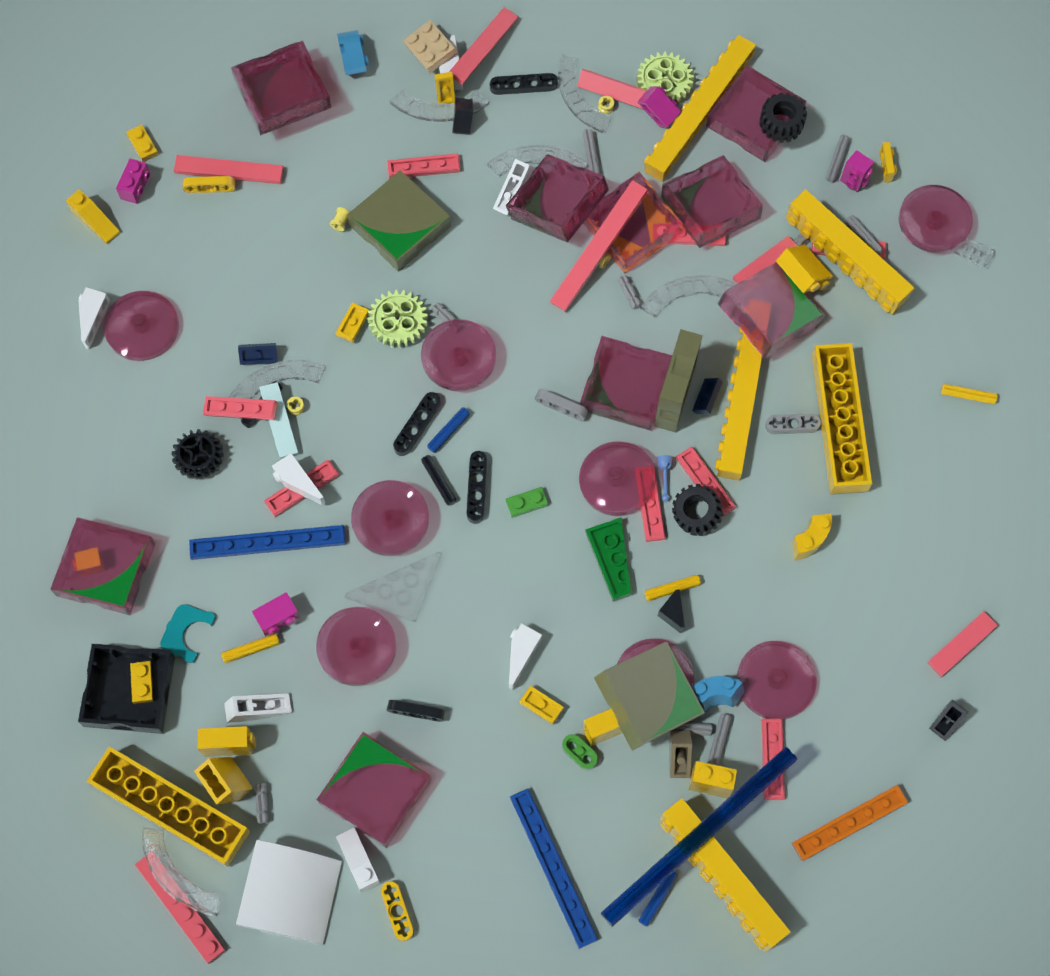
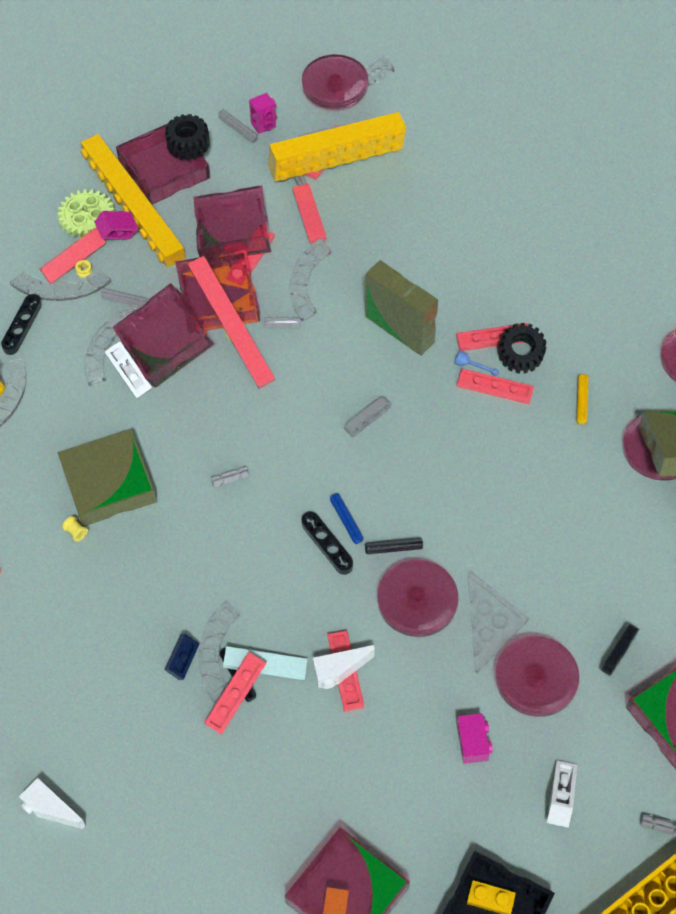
camera: 65 degrees left, 10 degrees down
(141, 325) = (87, 761): clear pink dish -> none
(180, 621) = (452, 852): teal piece -> none
(194, 468) = (273, 741): black gear -> none
(223, 780) = (634, 846): yellow brick -> none
(226, 741) = (592, 831): yellow brick -> none
(250, 648) = (496, 779): yellow axle -> none
(267, 542) = (388, 725): blue tile -> none
(292, 401) = (255, 637): light yellow bush -> none
(352, 322) = (192, 559): yellow plate -> none
(398, 333) = (225, 522): yellowish green gear -> none
(425, 165) = (57, 438): coral tile -> none
(458, 355) = (277, 478): clear pink dish -> none
(462, 116) = (27, 382): black slope -> none
(476, 487) = (418, 513): black beam -> none
(523, 646) = (596, 538): white slope -> none
(526, 502) = (449, 481): bright green plate -> none
(541, 705) = (654, 542): yellow plate -> none
(610, 554) = (526, 433): green wing -> none
(617, 478) = (461, 400): clear pink dish -> none
(625, 383) = (372, 356): clear pink tile -> none
(672, 612) = (607, 405): black slope -> none
(739, 411) = (423, 273): yellow brick -> none
(770, 309) = (360, 221): clear pink tile -> none
(797, 417) = (469, 247): light grey beam -> none
(804, 268) = (334, 184): yellow brick -> none
(813, 538) = (582, 277): yellow brick -> none
(841, 419) = (484, 214): yellow brick -> none
(886, 157) = (255, 89): yellow plate -> none
(968, 393) = (500, 125): yellow axle -> none

